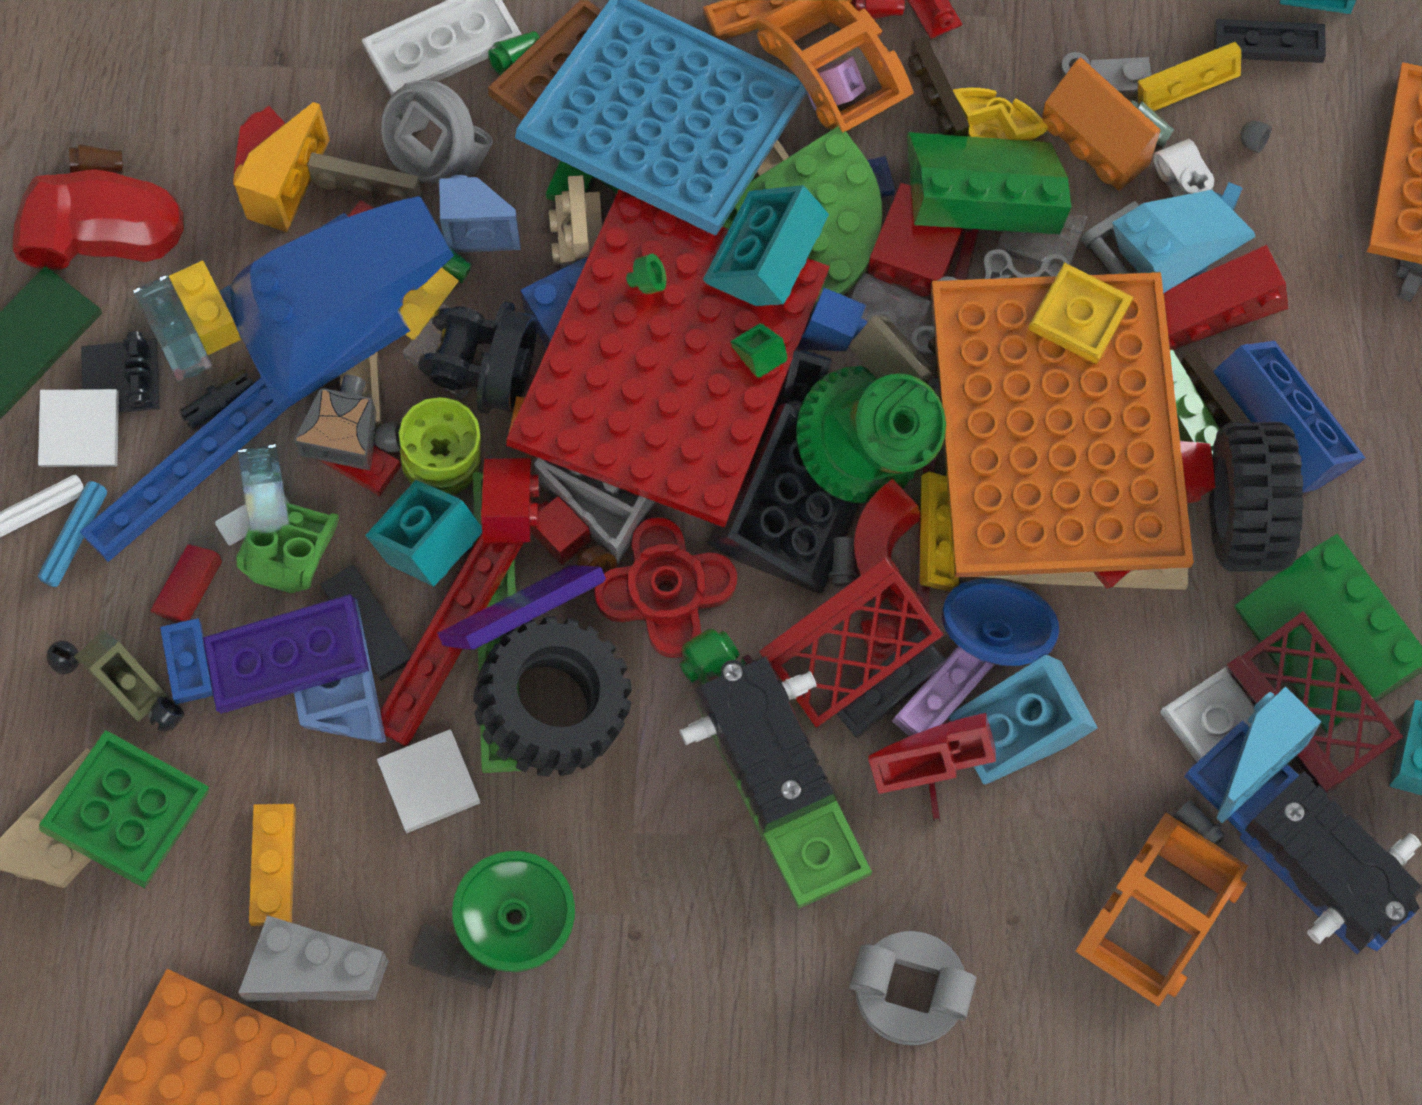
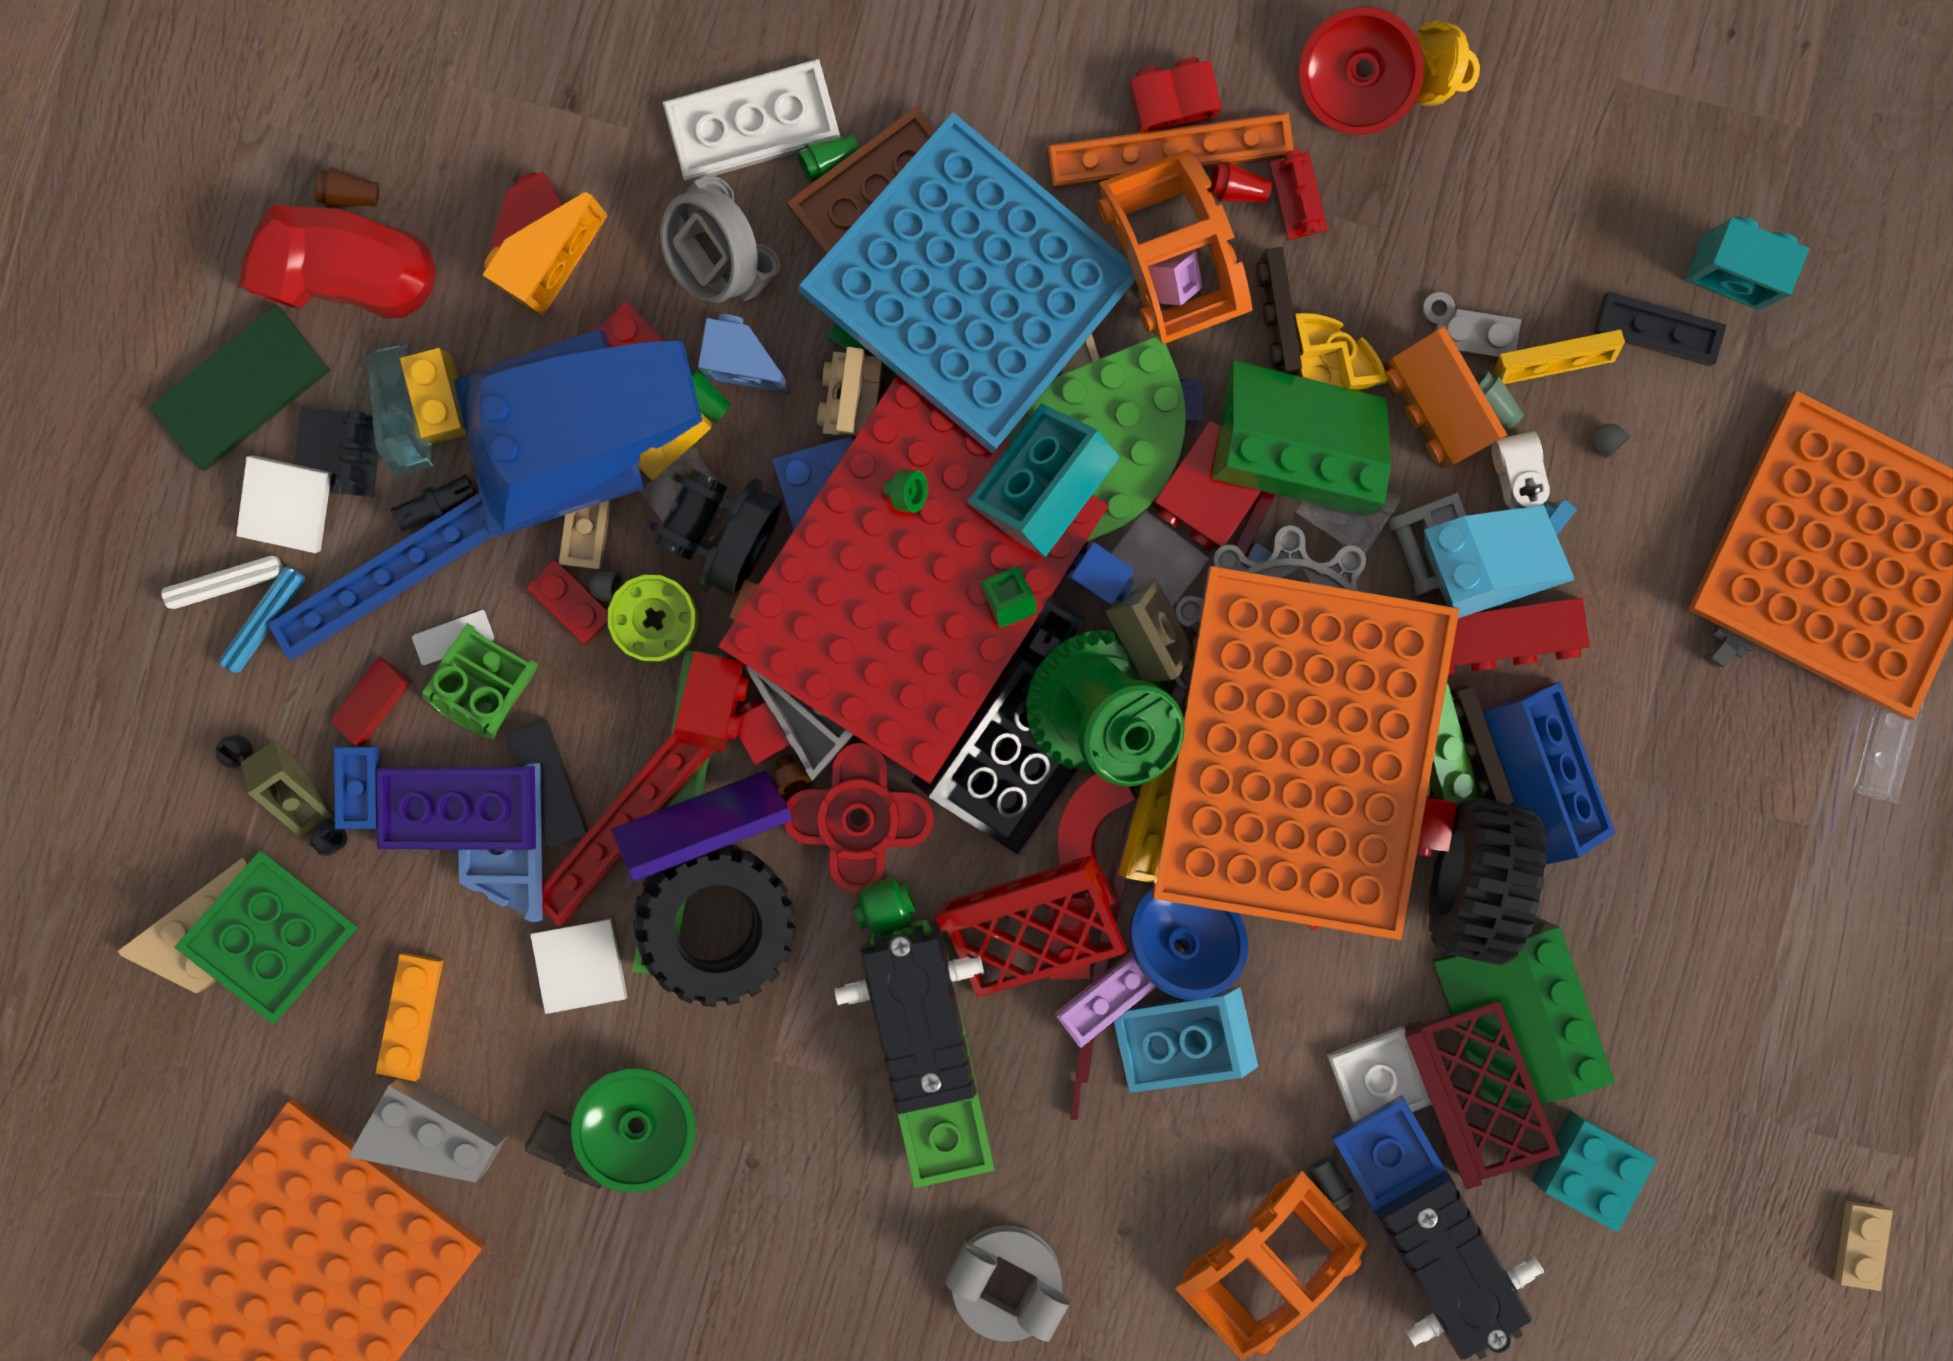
camera: 10 degrees right, 20 degrees up
(263, 489) = (460, 623): clear light blue slope -> none
(340, 426) = (554, 573): torso -> none
(362, 178) = (632, 280): dark tan plate -> none
(425, 532) = (618, 713): teal brick -> none
(843, 562) = (1046, 832): dark grey pin -> none
(884, 696) = (1055, 987): black tile -> none
(933, 754) = (1087, 1065): red slope -> none
(1080, 313) = (1360, 640): yellow tile -> none
(1276, 735) = (1416, 1155): medium azure slope -> none

